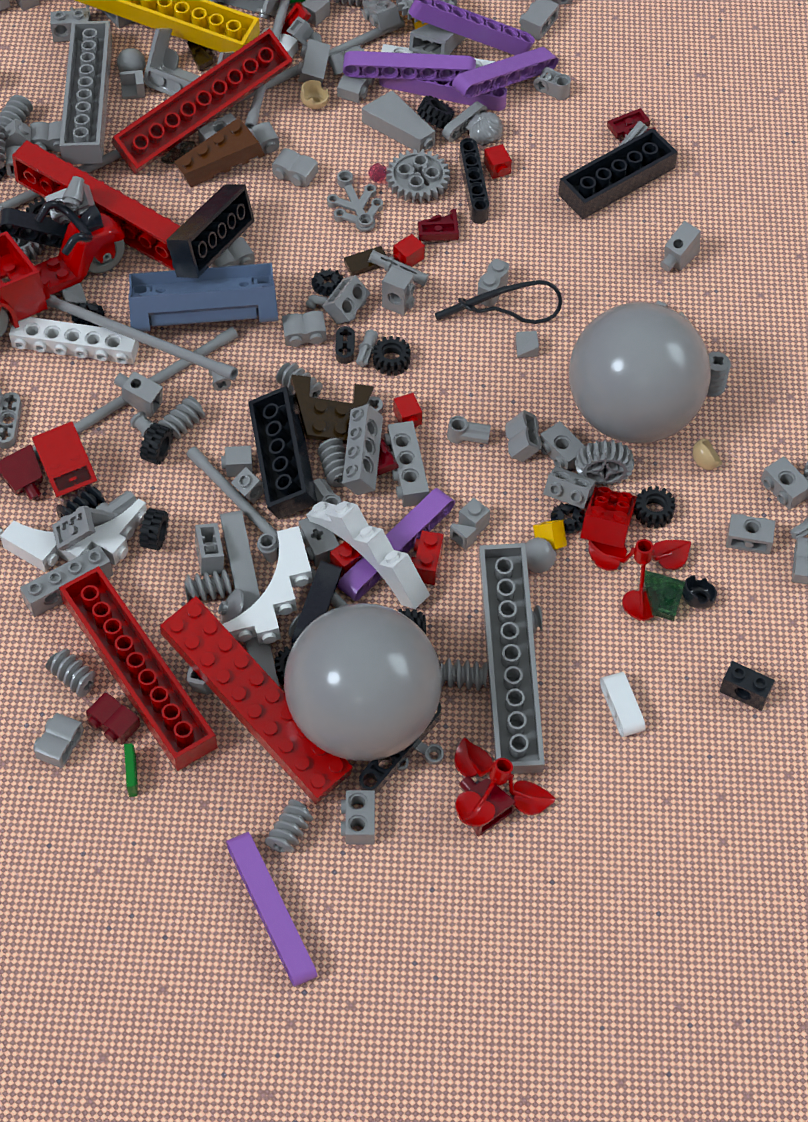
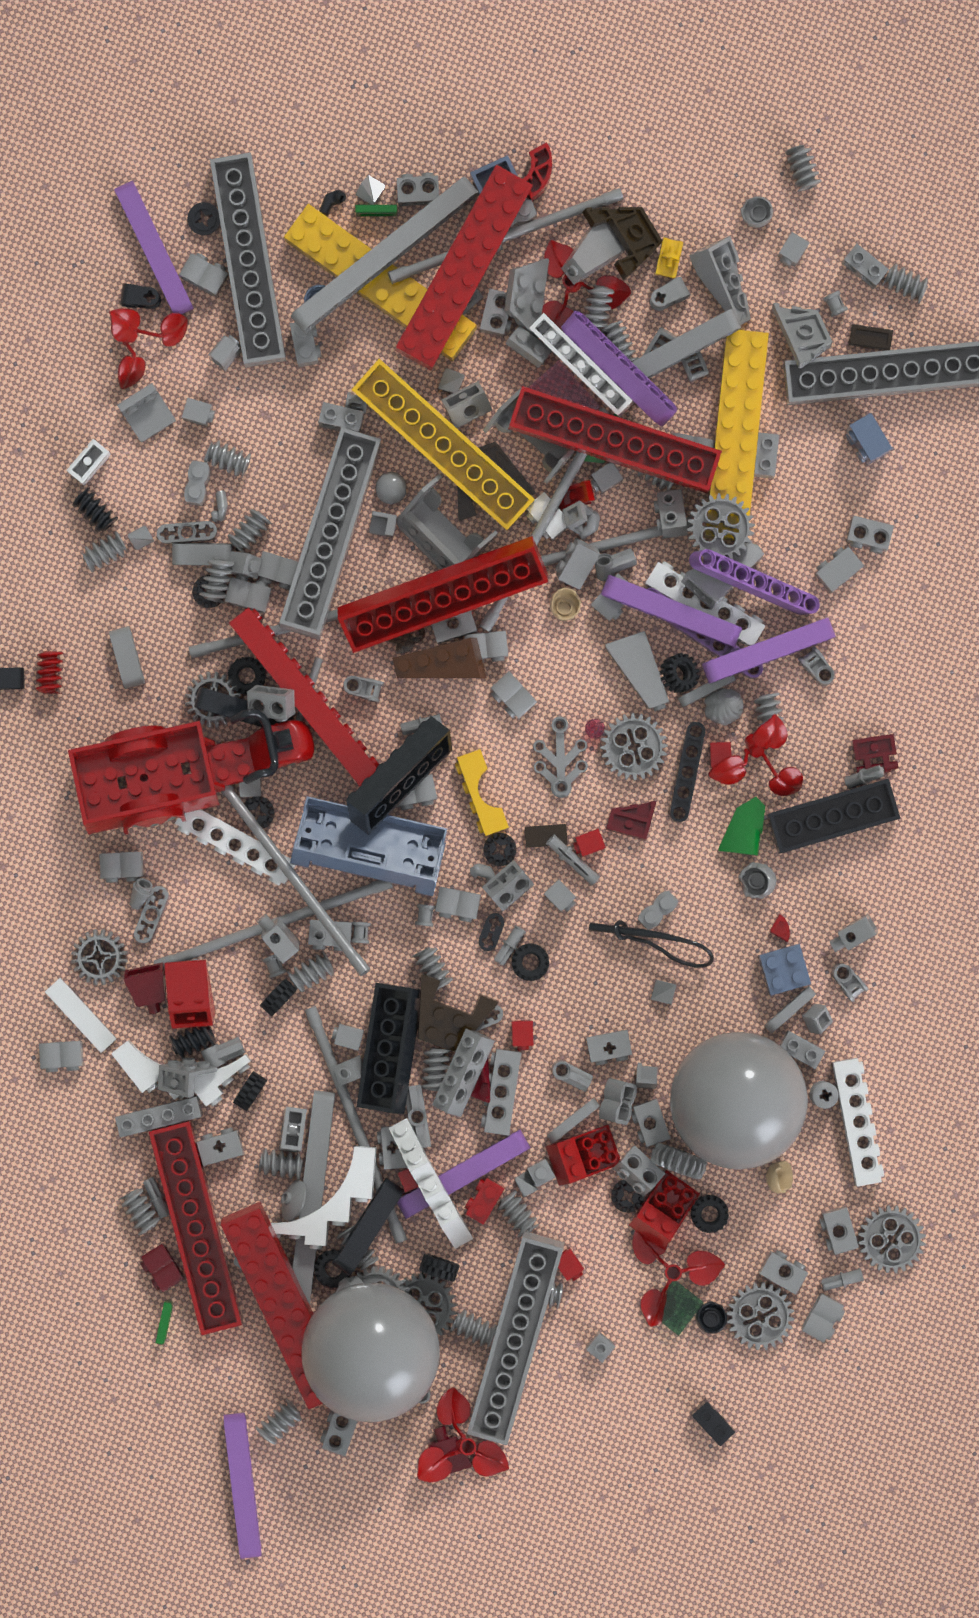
camera: 20 degrees right, 30 degrees up
(59, 740) = (111, 1273): light grey brick -> none
(74, 193) = (273, 710): light grey cone -> none
(88, 657) = (156, 1197): none -> light grey axle
(141, 590) = (211, 1155): none -> light grey brick
(153, 196) = (365, 688): none -> light grey piece
(190, 382) = (320, 937): none -> light grey brick
(269, 546) = (340, 1144): light grey cone -> none
(276, 344) = (425, 915): none -> light grey bush
(307, 257) = (491, 818): none -> yellow arch
(462, 559) = (517, 1213): none -> light grey piece
(486, 468) = (573, 1120): none -> light grey beam
(494, 398) = (618, 1038): none -> light grey brick
(508, 494) = (583, 1155): none -> red slope
(511, 159) = (772, 735): none -> red plant
(528, 123) = (767, 707): none -> light grey piece
(539, 555) = (583, 1230): light grey hair -> none
(540, 589) = (570, 1265): none -> red brick
(544, 412) = (646, 1076): none -> light grey panel
(545, 205) = (745, 829): none -> green panel
(552, 531) = (603, 1211): yellow panel -> none
(573, 236) = (757, 880): none -> light grey hair
(600, 652) = (600, 1346): none -> light grey brick
(611, 272) = (781, 928): none -> red tile
(622, 704) = (599, 1401): white beam -> none
(629, 287) = (784, 969): none -> sand blue brick
(691, 288) = (849, 982): none -> light grey piece
(733, 566) = (752, 1298): none -> light grey gear
(760, 396) = (861, 1175): none -> white brick

